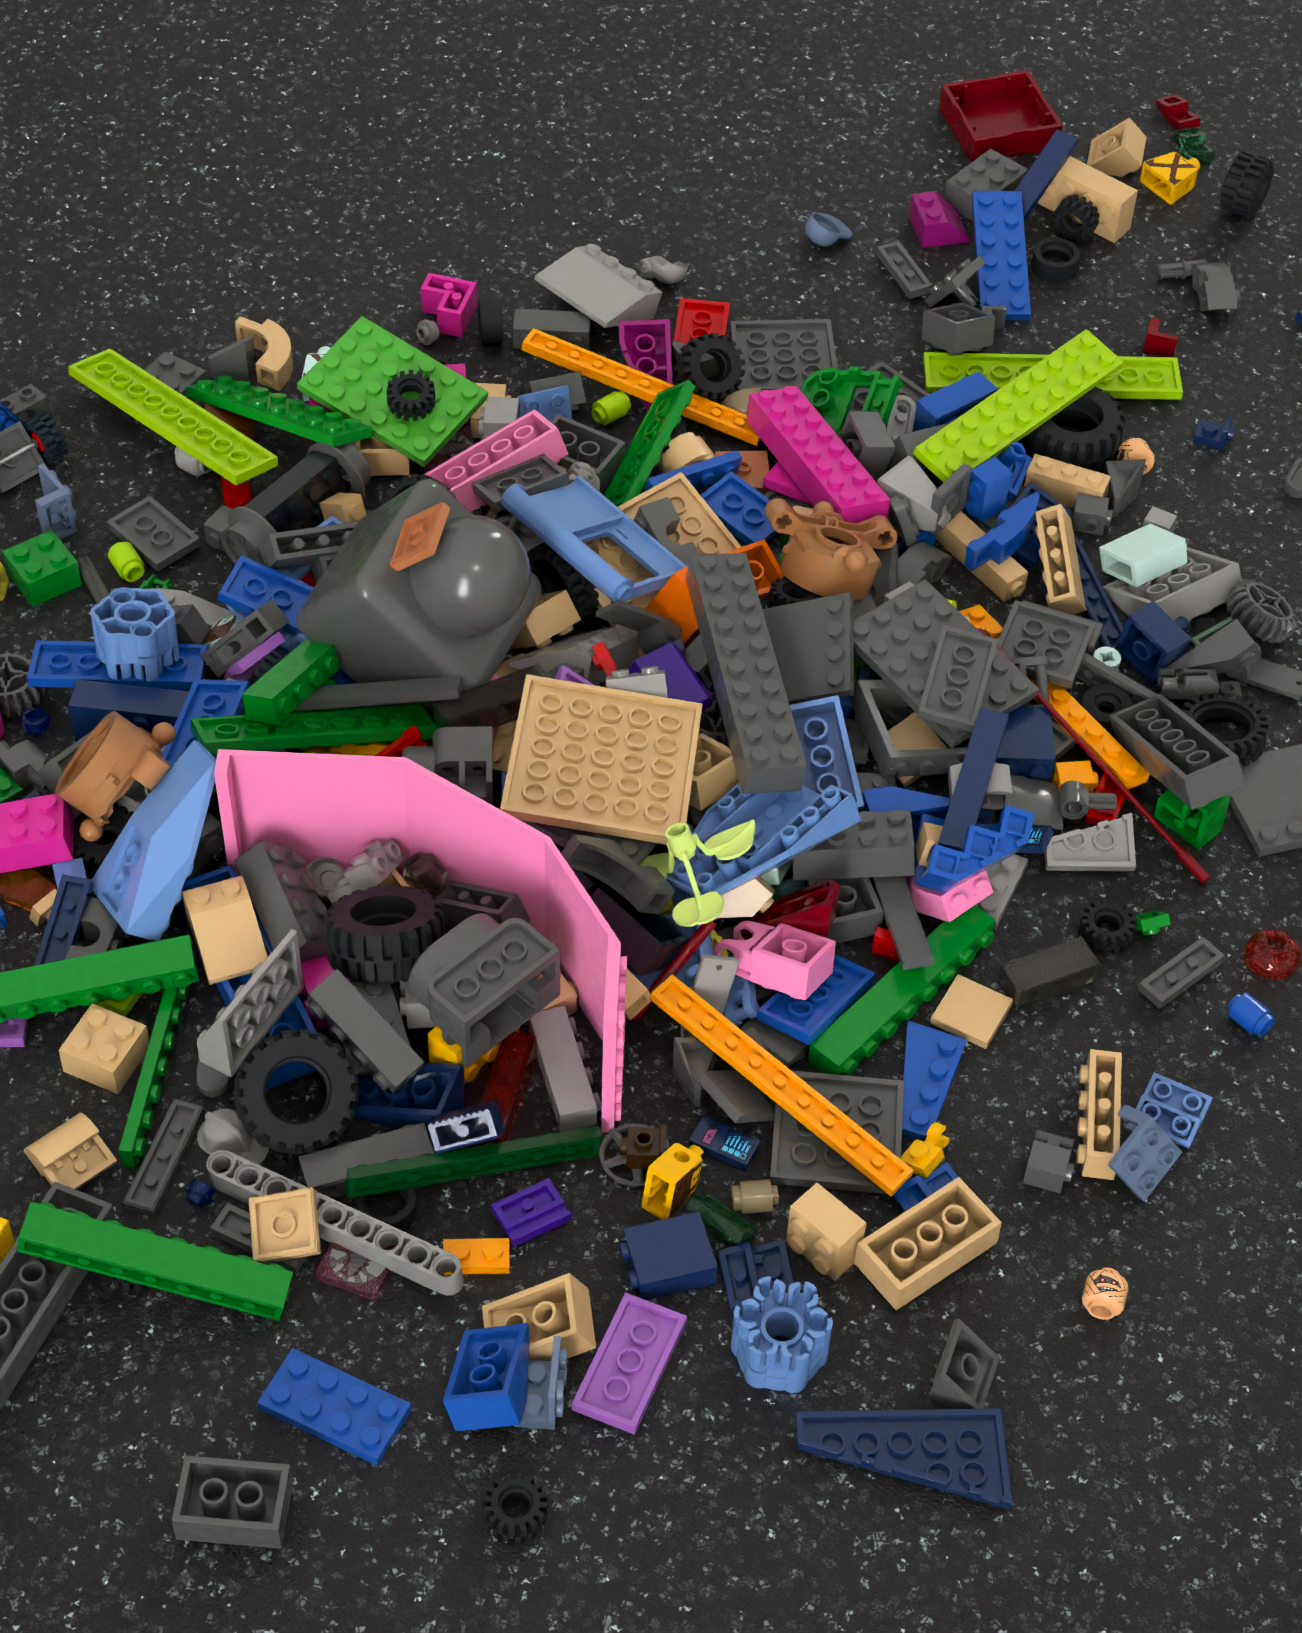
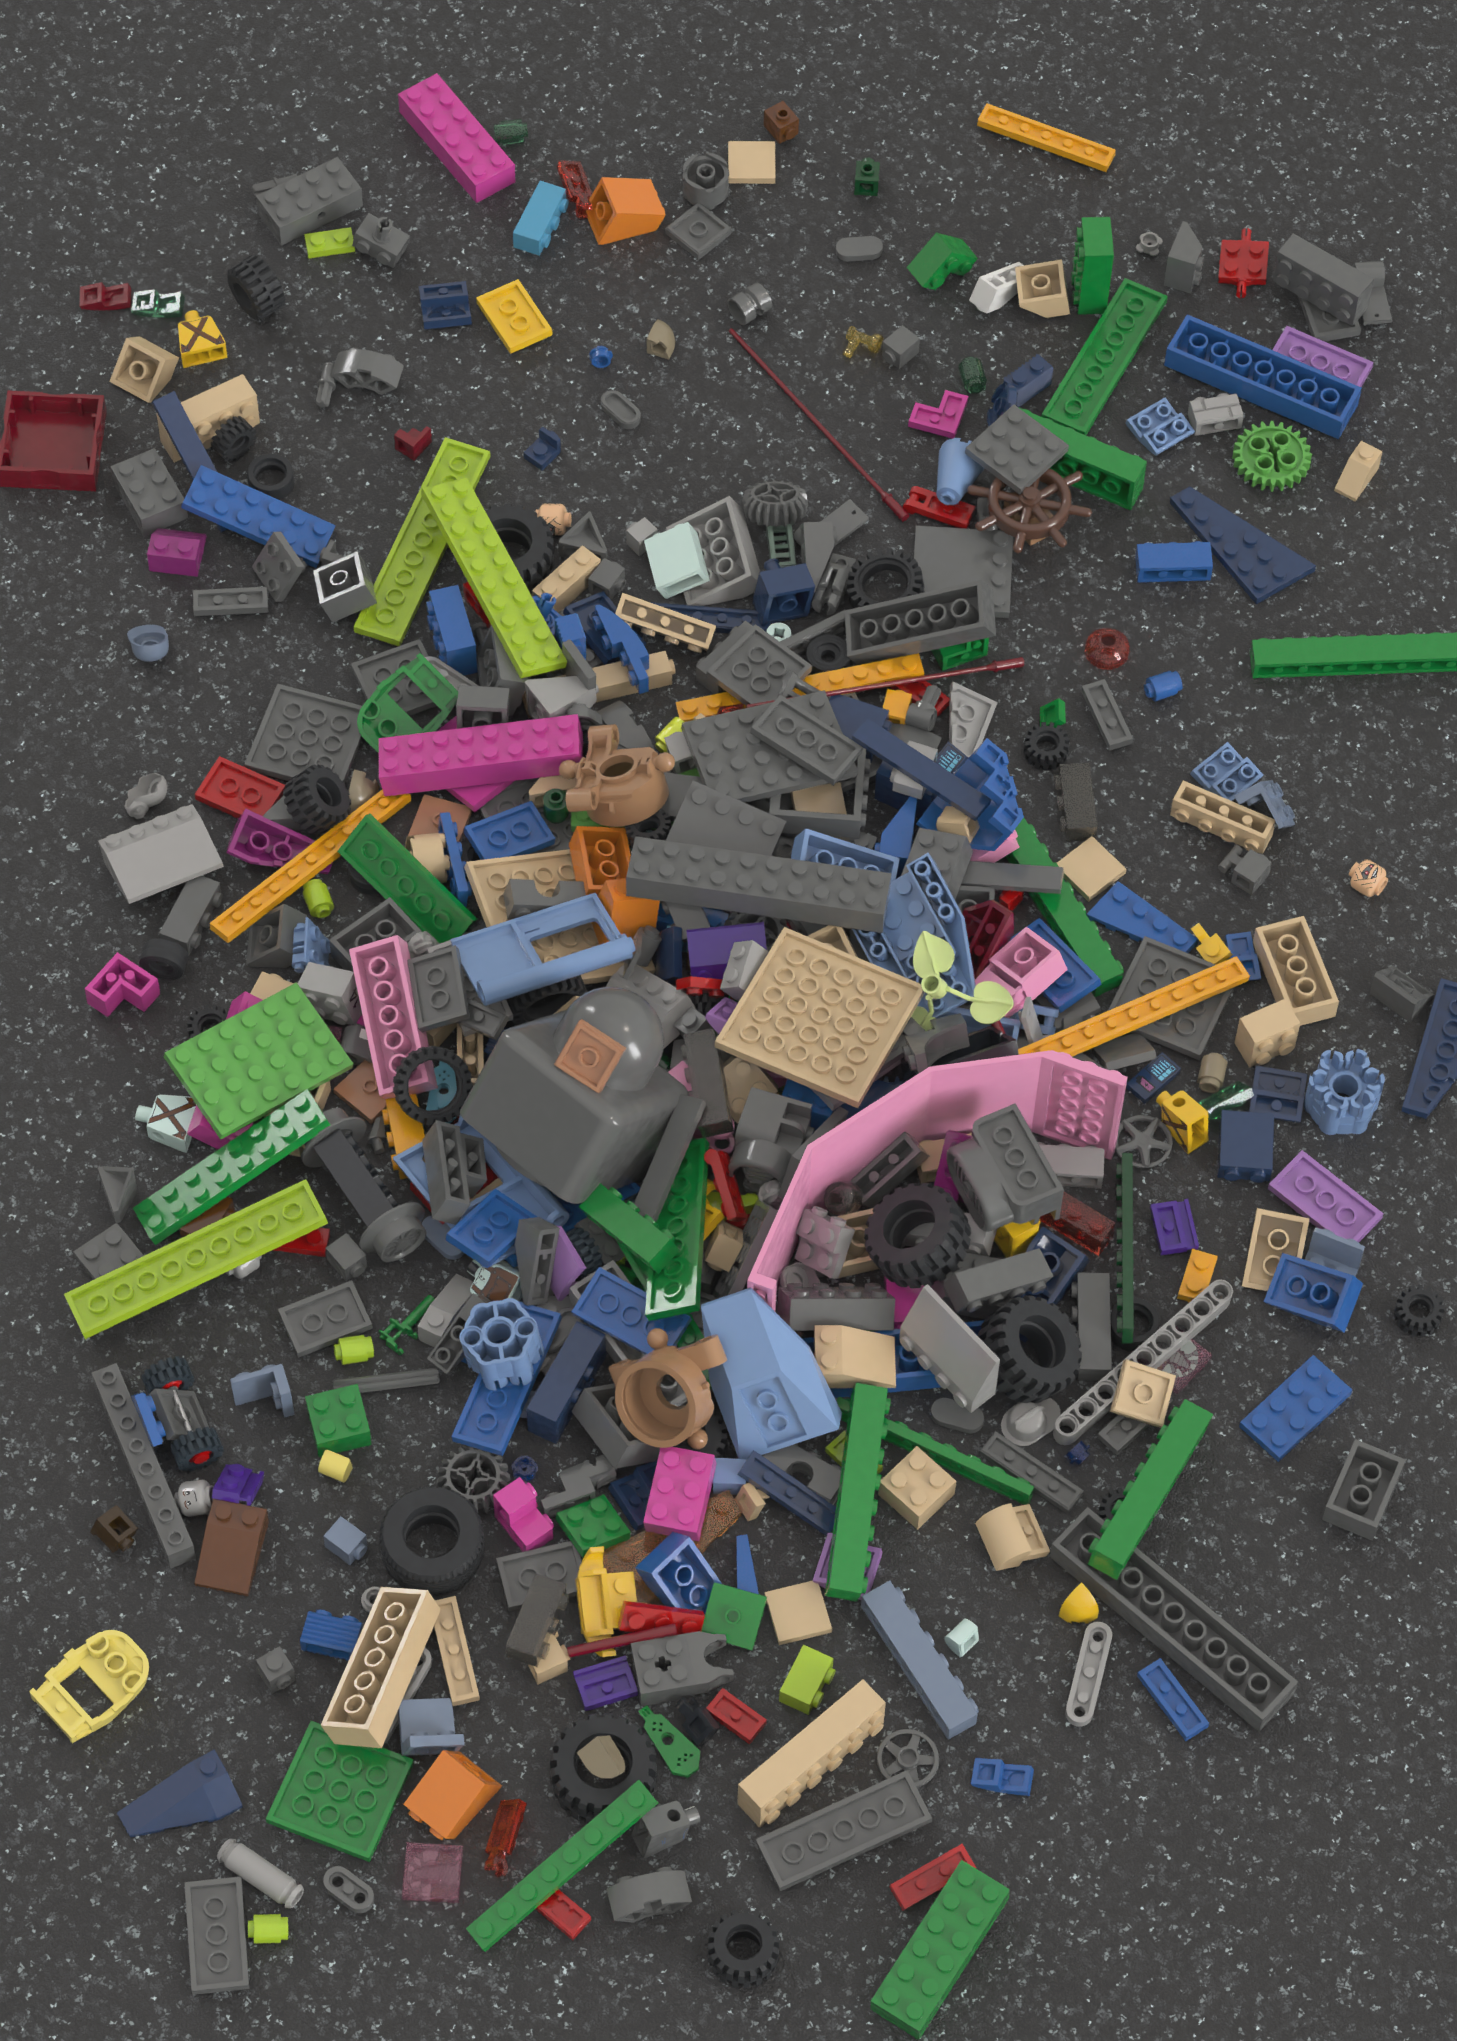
camera: 70 degrees left, 10 degrees up
(276, 363) = (115, 1152): tan arch -> none
(344, 507) = (382, 1146): tan brick -> none
(407, 383) = (292, 1030): black tyre -> none
(427, 332) = (145, 1018): light grey plate -> none
(466, 1126) = (1109, 1236): dark blue brick -> none
(643, 1146) = (1150, 1127): dark brown brick -> none

